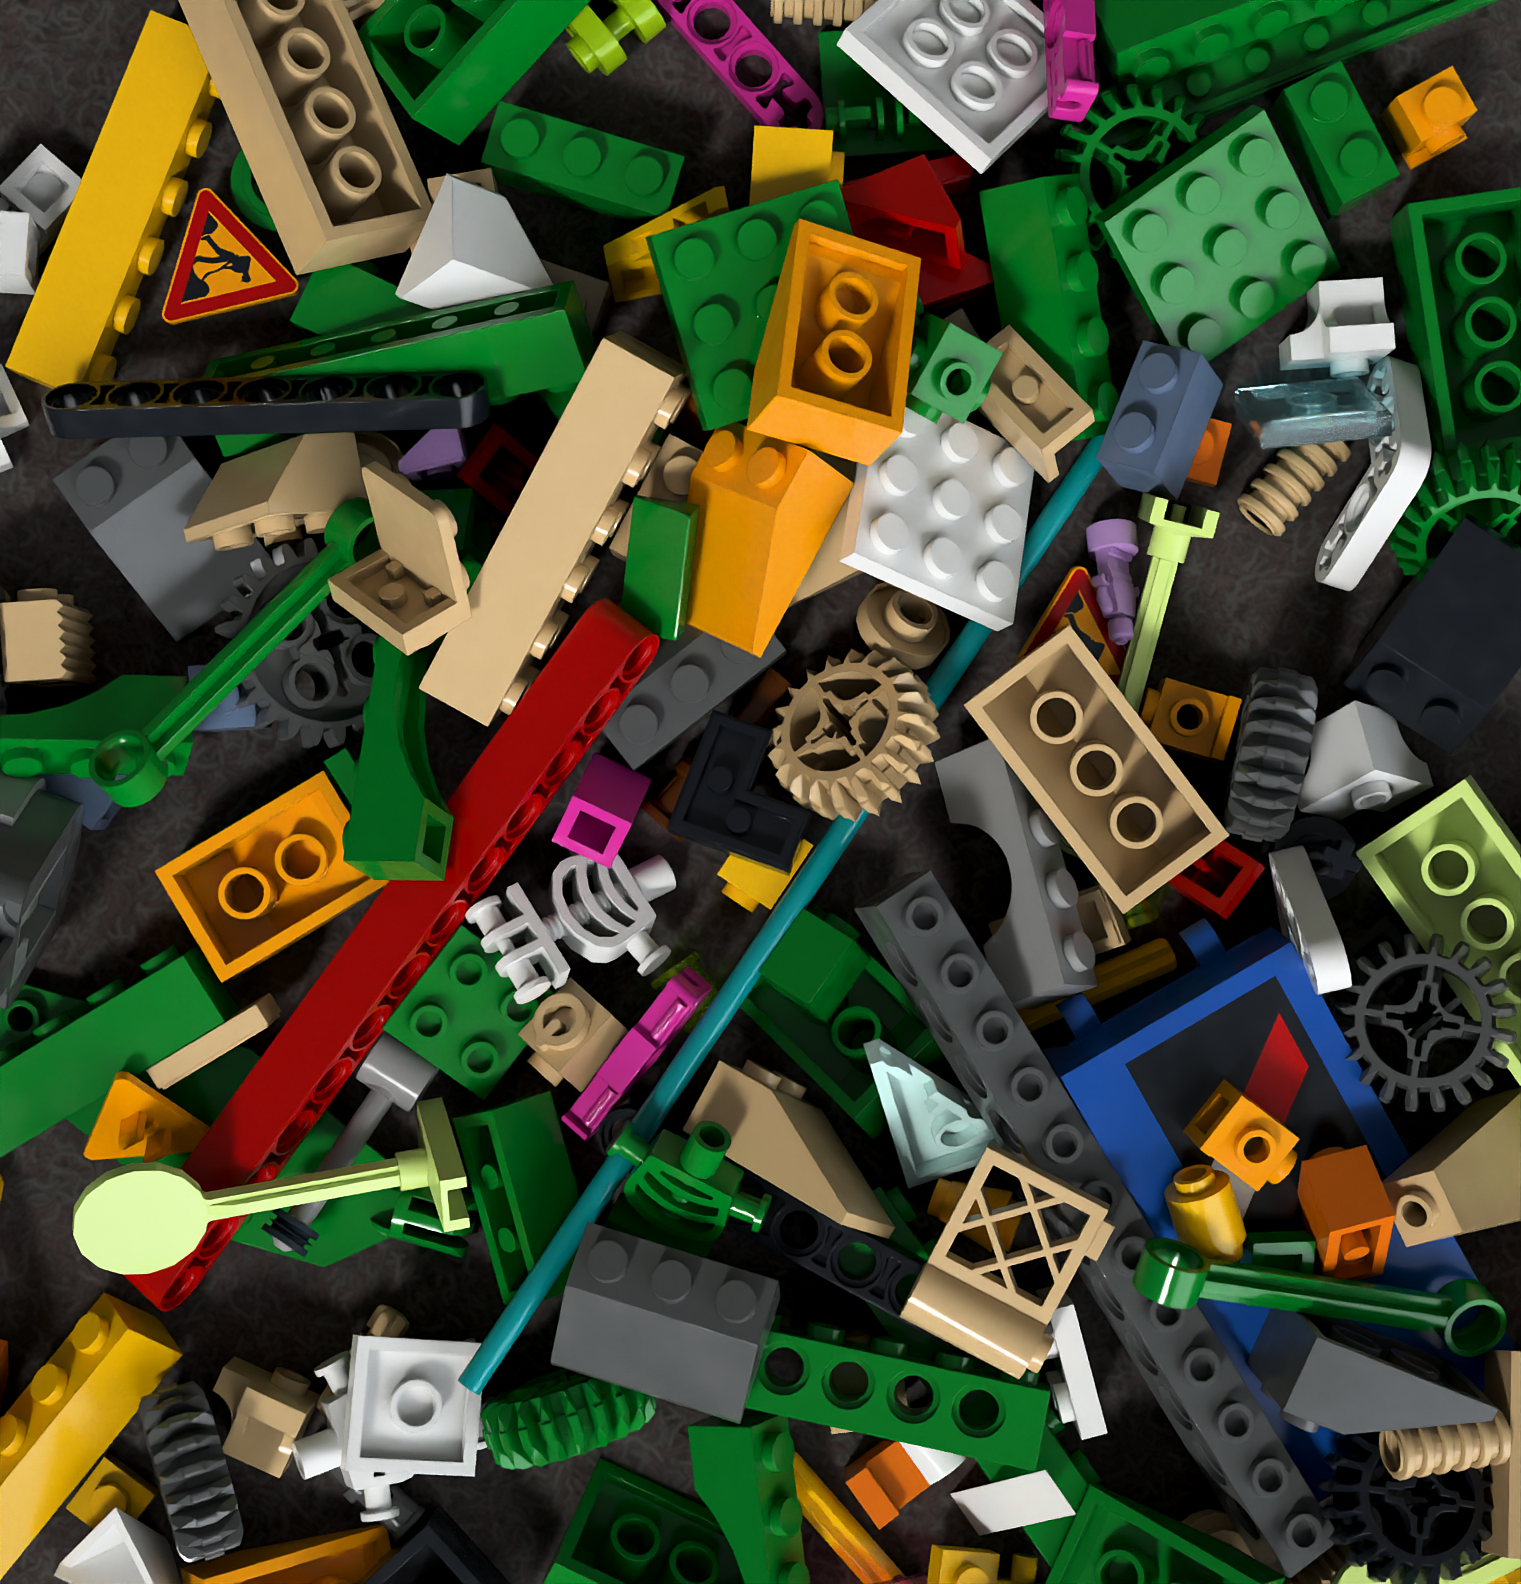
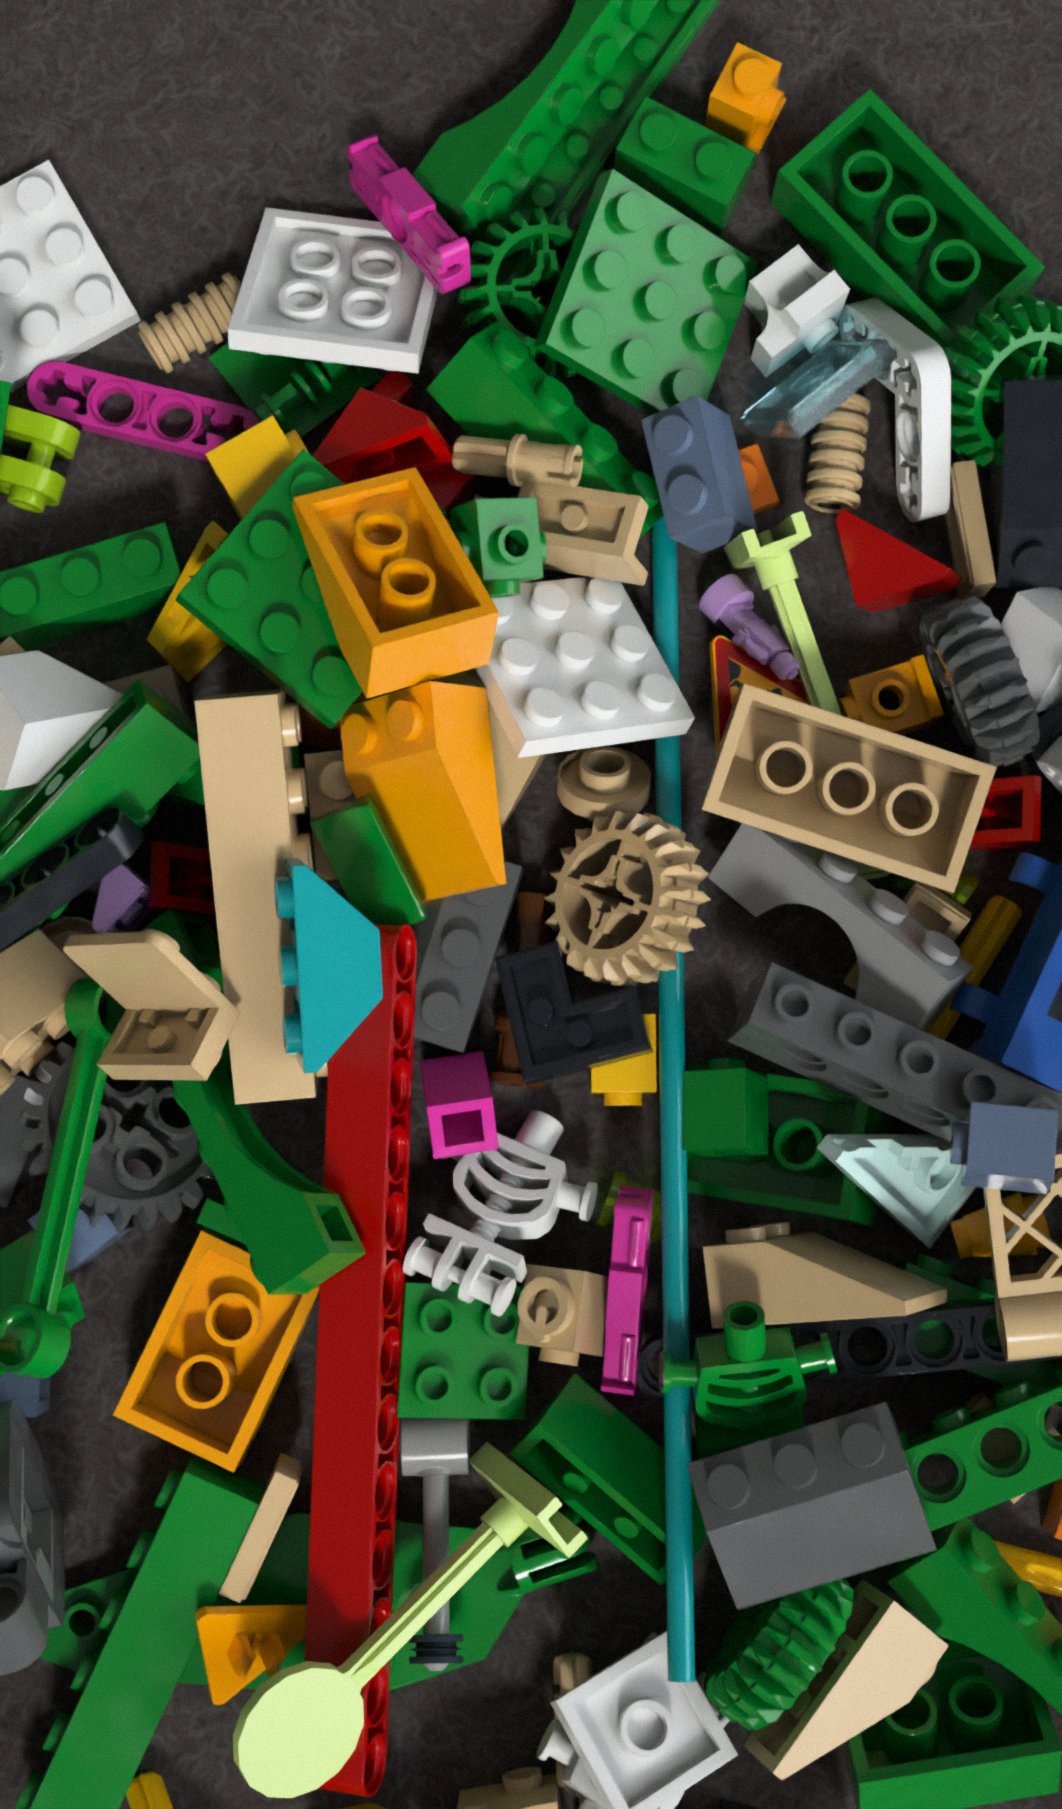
camera: 30 degrees left, 5 degrees down
(568, 628) = (329, 964): none -> teal slope
(616, 1485) = (867, 1677): none -> tan slope
(1011, 1146) = (1006, 1147): none -> sand blue brick
(1014, 308) = (518, 460): none -> tan axle
(1263, 603) = (886, 569): none -> red slope
(1355, 620) = (969, 532): none -> tan tile

